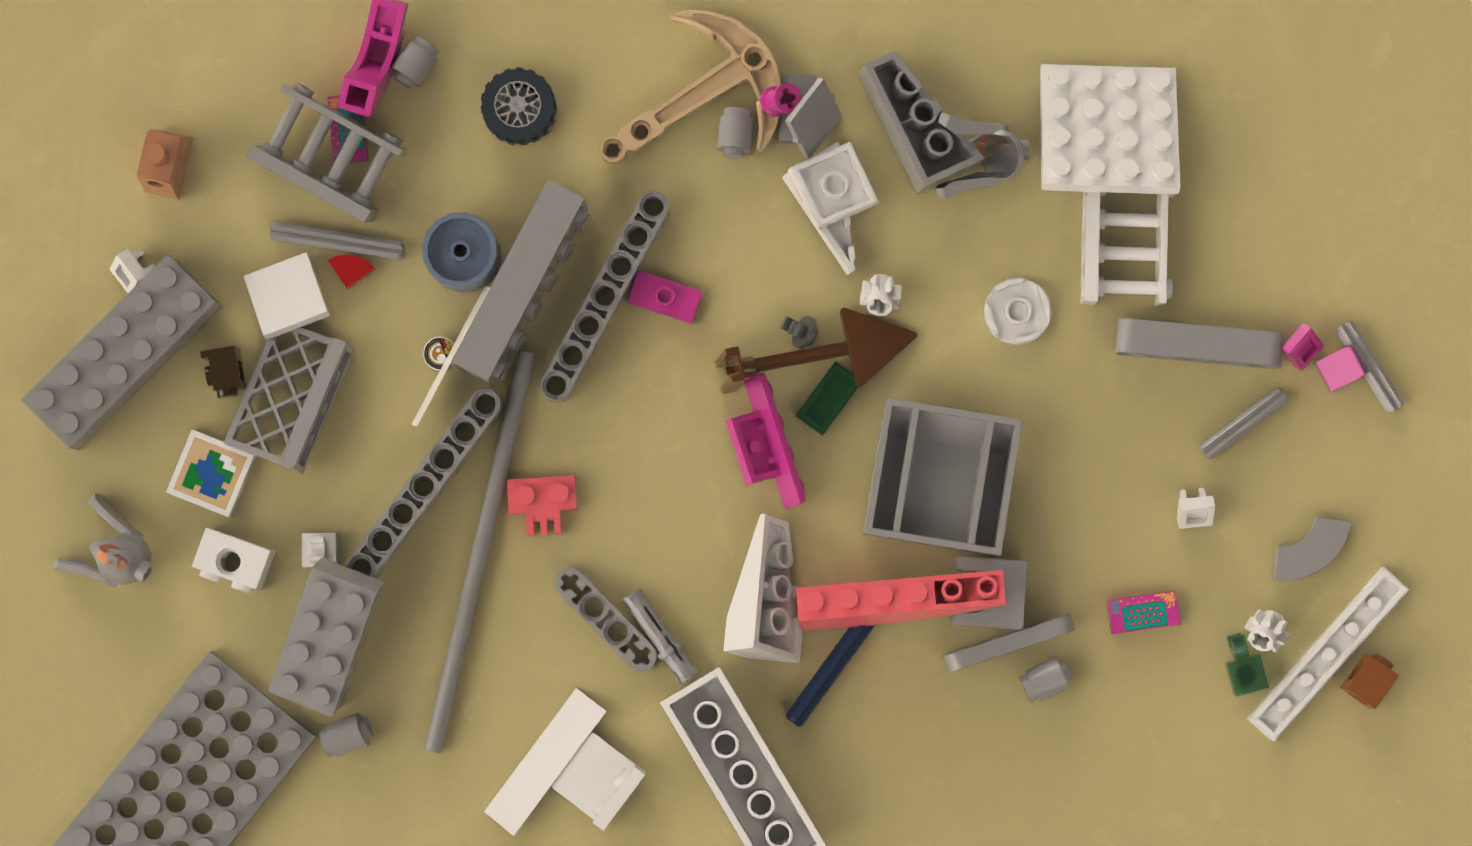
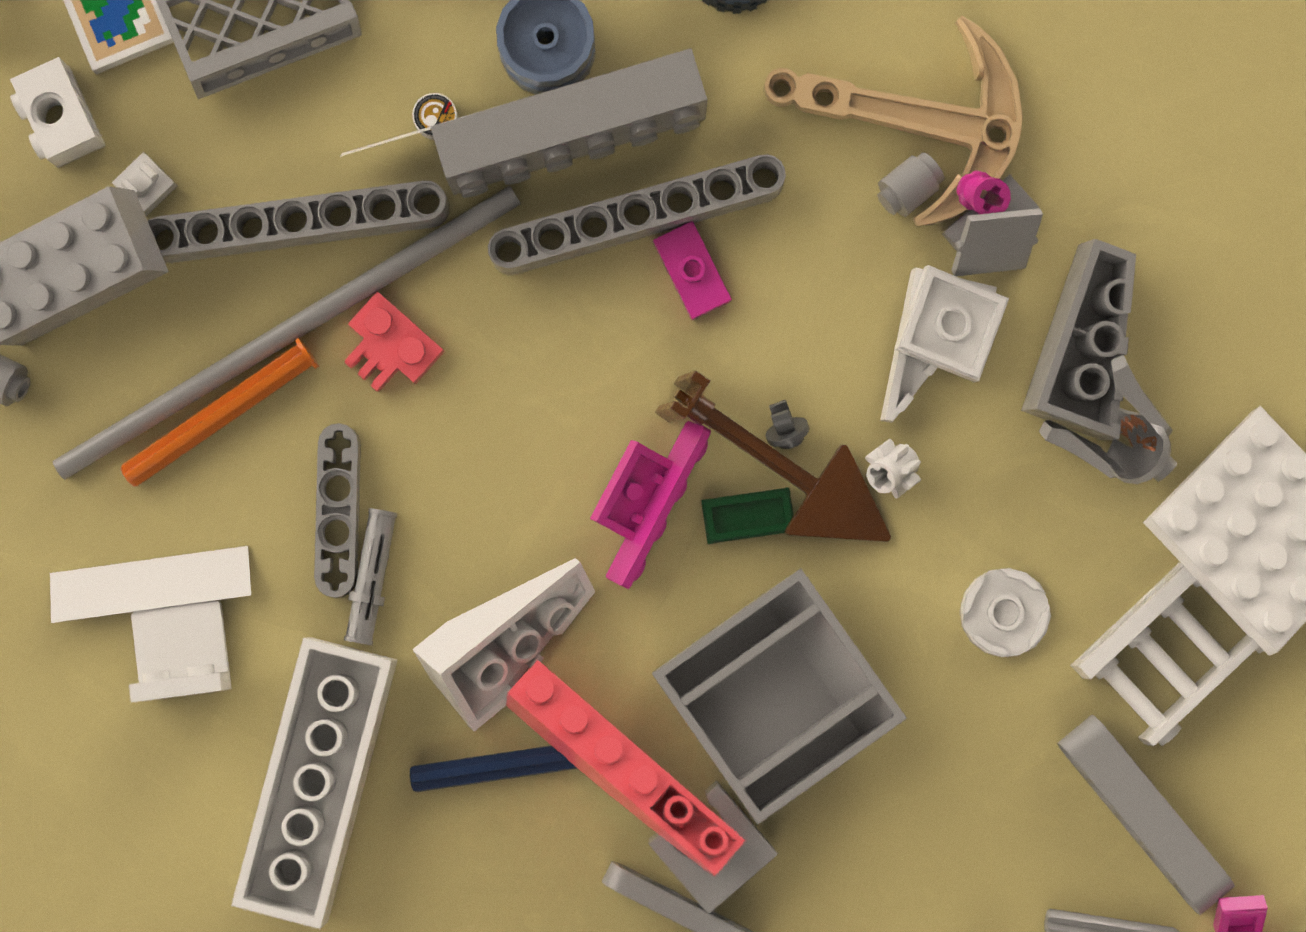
camera: 45 degrees right, 0 degrees up
(488, 633) = (218, 414): none -> orange axle

